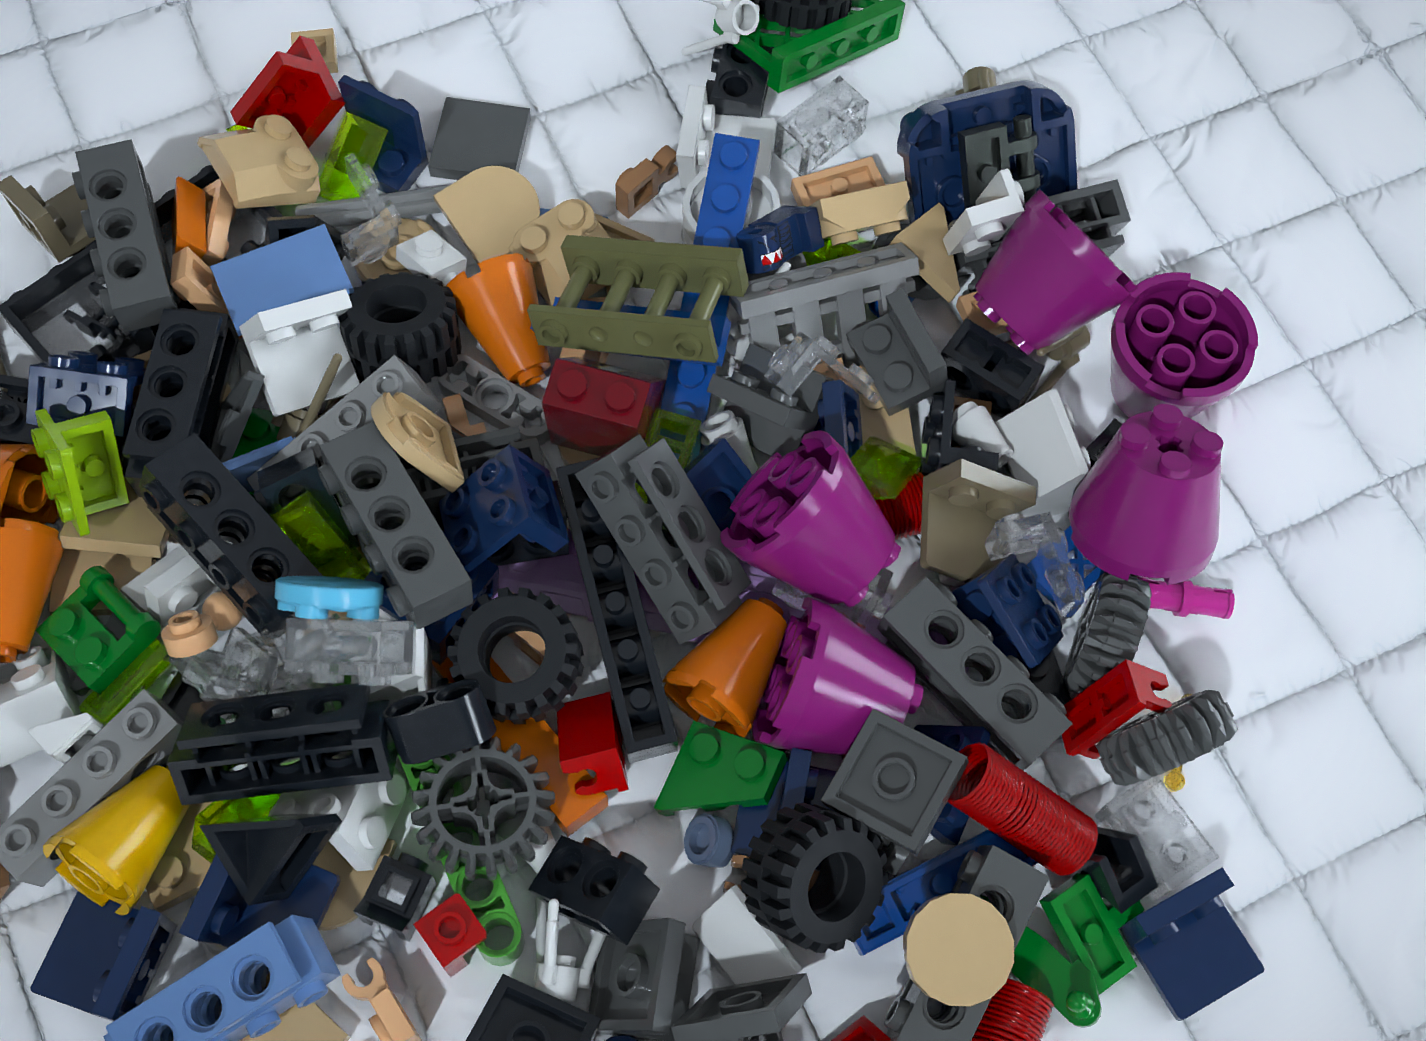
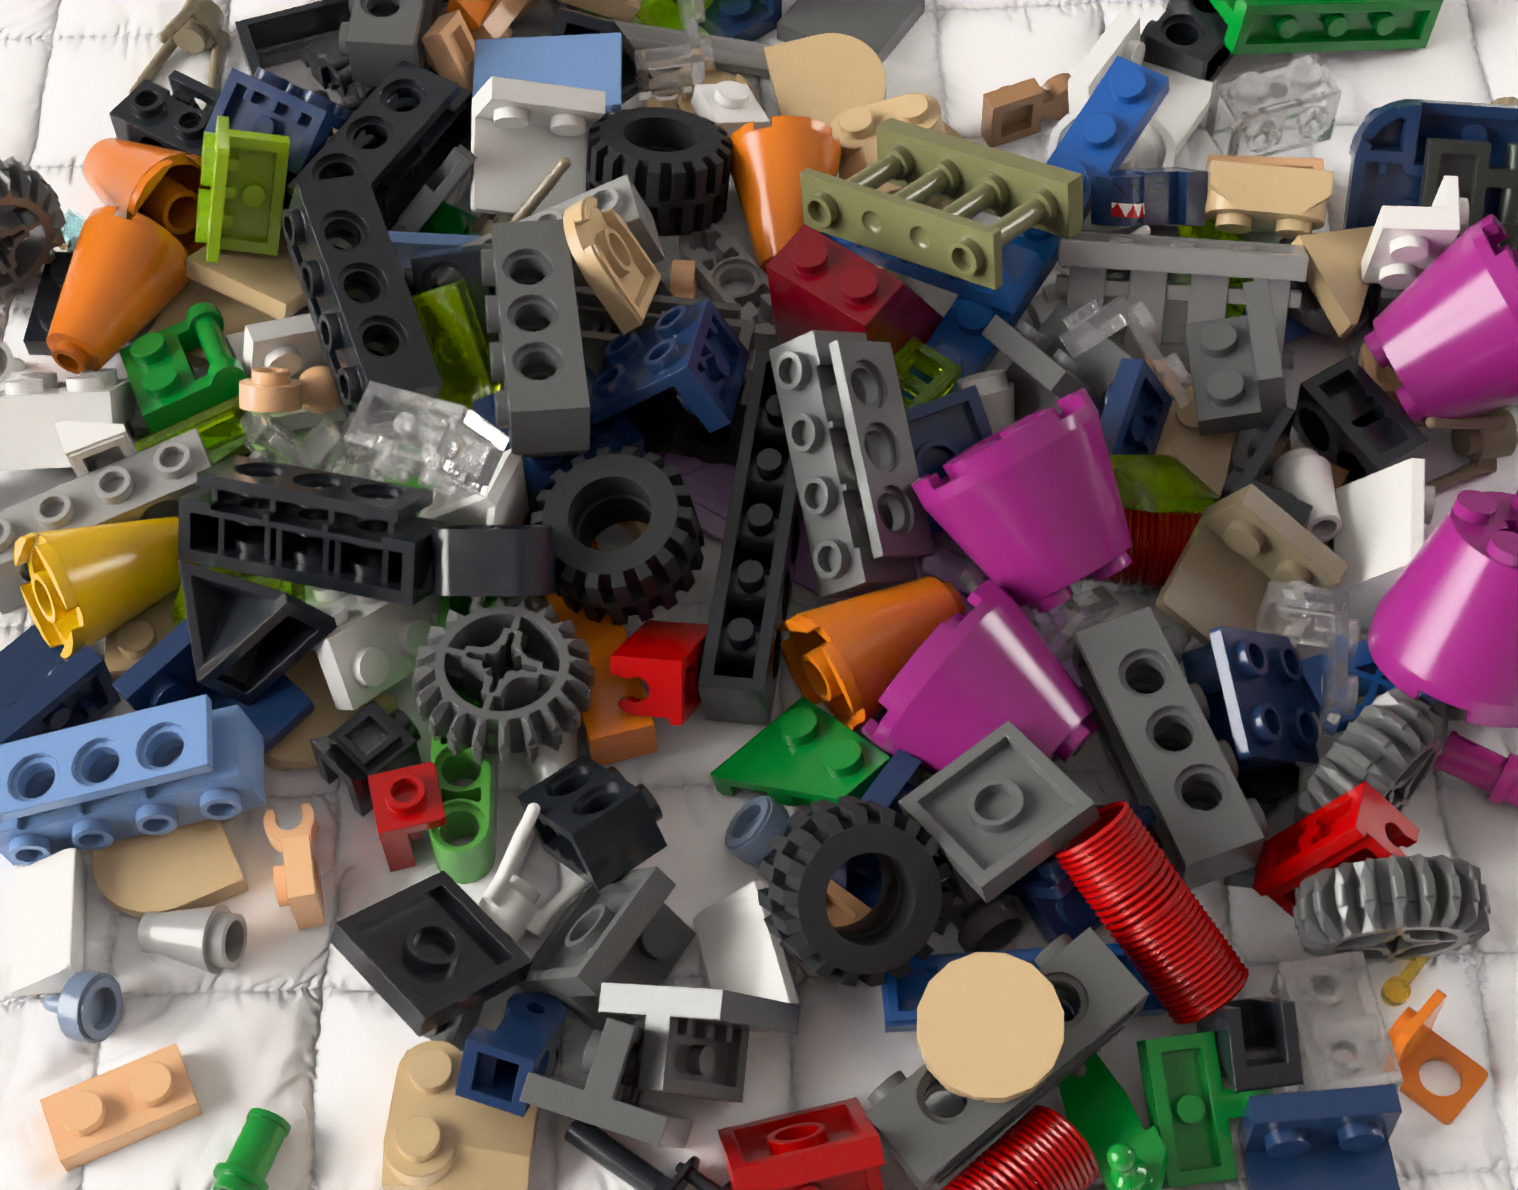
camera: 30 degrees right, 10 degrees down
(316, 595) = (412, 370): medium azure tile -> none
(1206, 814) = (1418, 1044): none -> orange bracket

